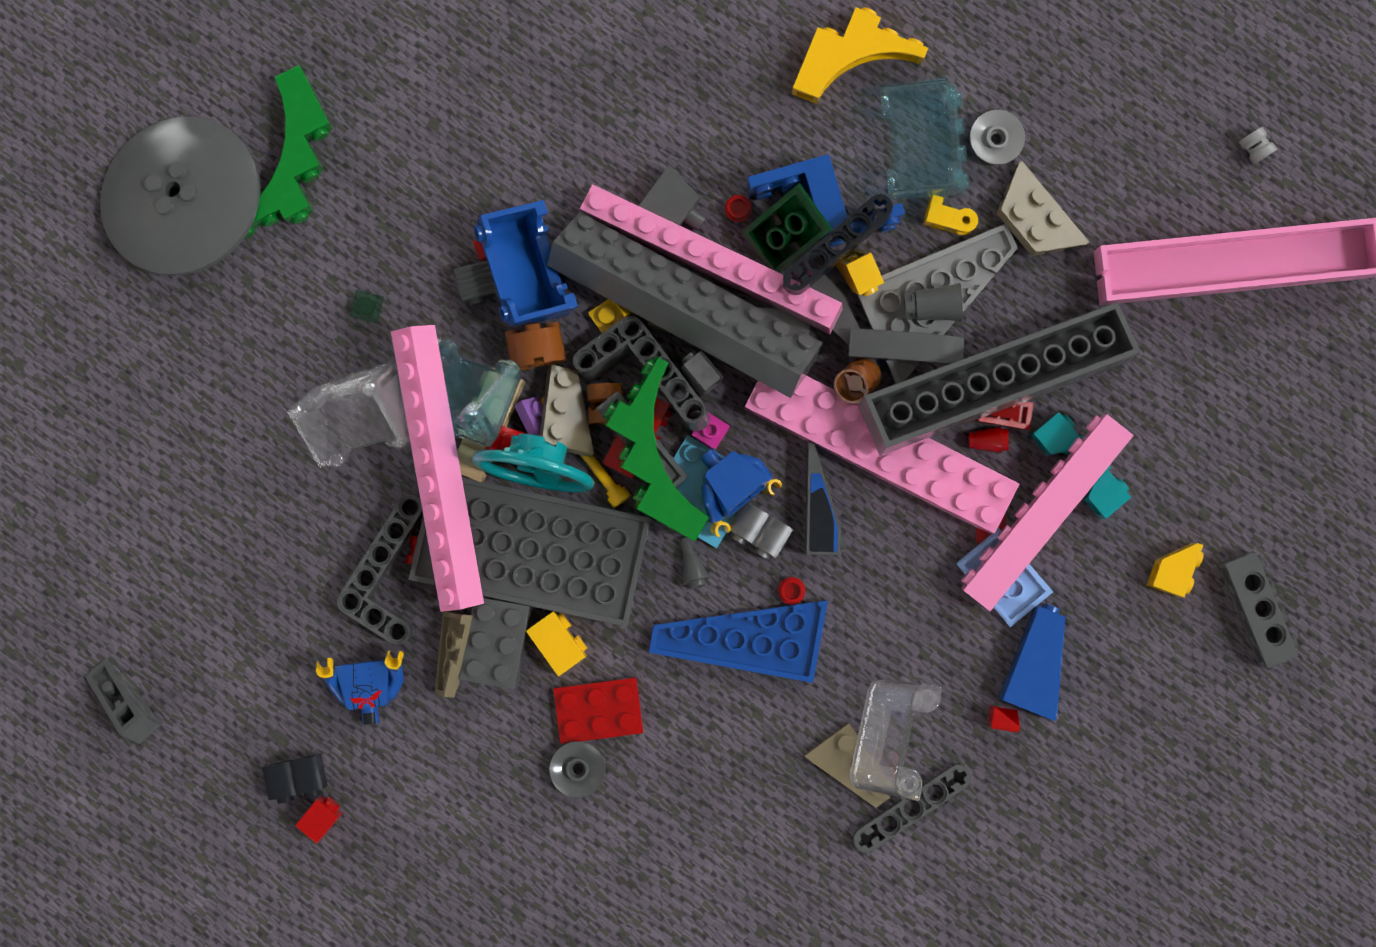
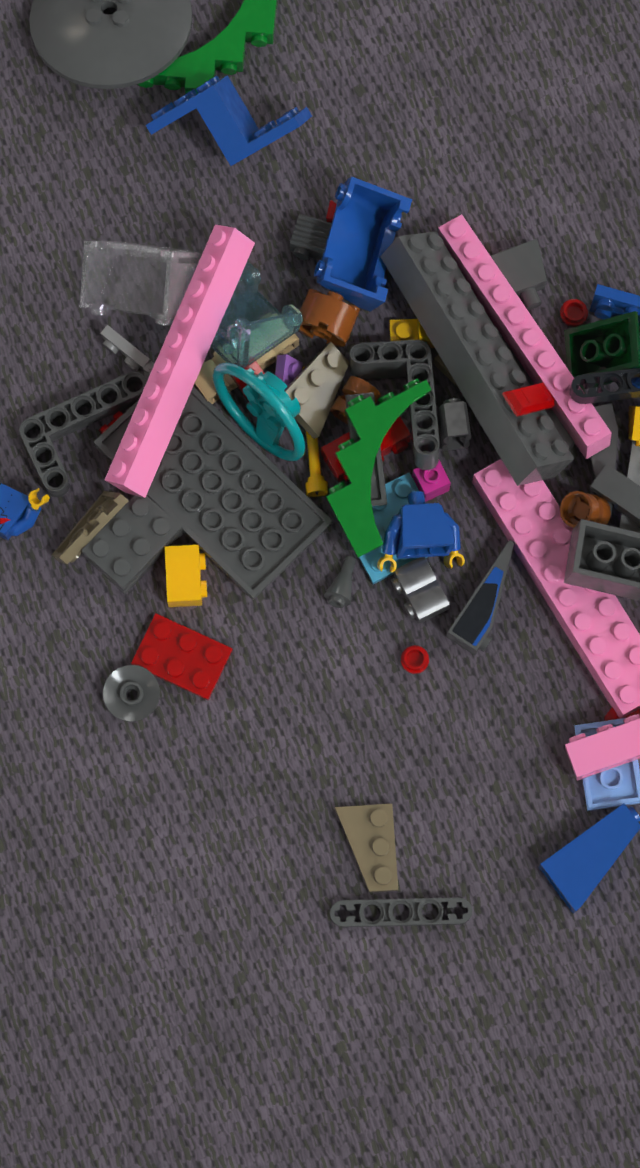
camera: 30 degrees right, 10 degrees down
(340, 226) = (228, 119): none -> blue bracket
(367, 306) = (206, 202): clear green plate -> none
(395, 482) = (134, 359): none -> light grey hinge
(754, 317) = (529, 399): none -> red tile
(760, 641) = (358, 683): blue wing -> none
(885, 738) = (393, 849): clear windscreen -> none
(1003, 719) = (530, 885): red slope -> none

